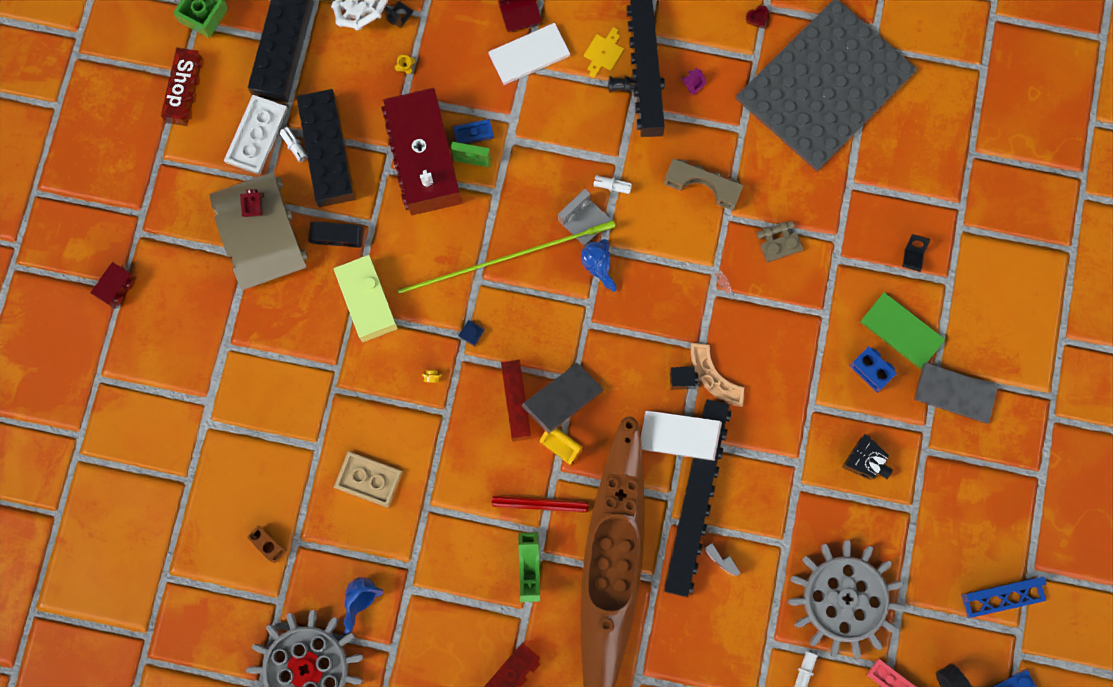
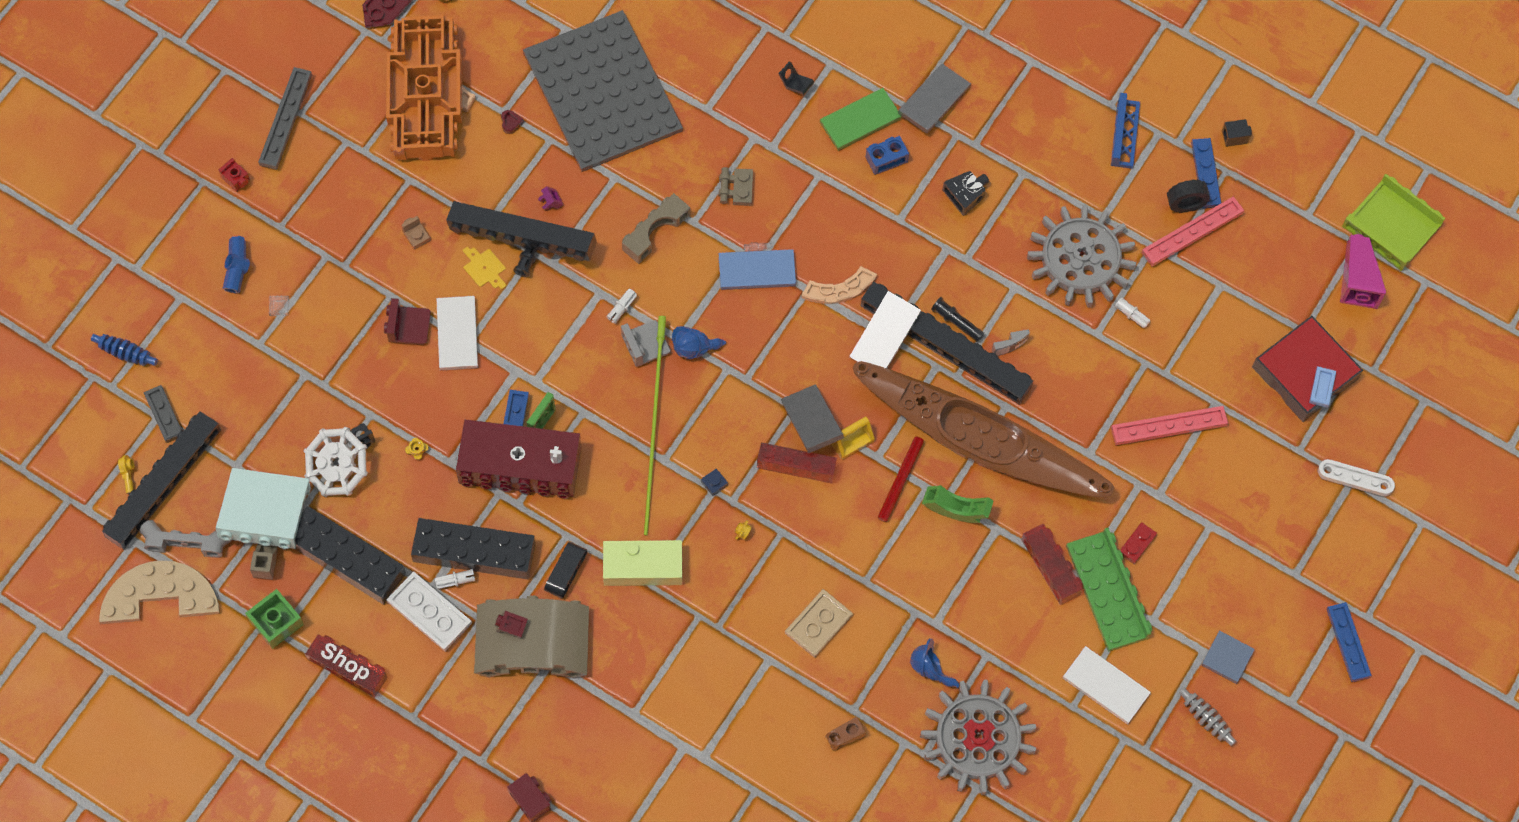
camera: 75 degrees left, 10 degrees down
(683, 378) = (832, 313): black brick -> none
(701, 292) = (757, 269): none -> medium blue tile
(729, 491) = (951, 314): none -> black pin

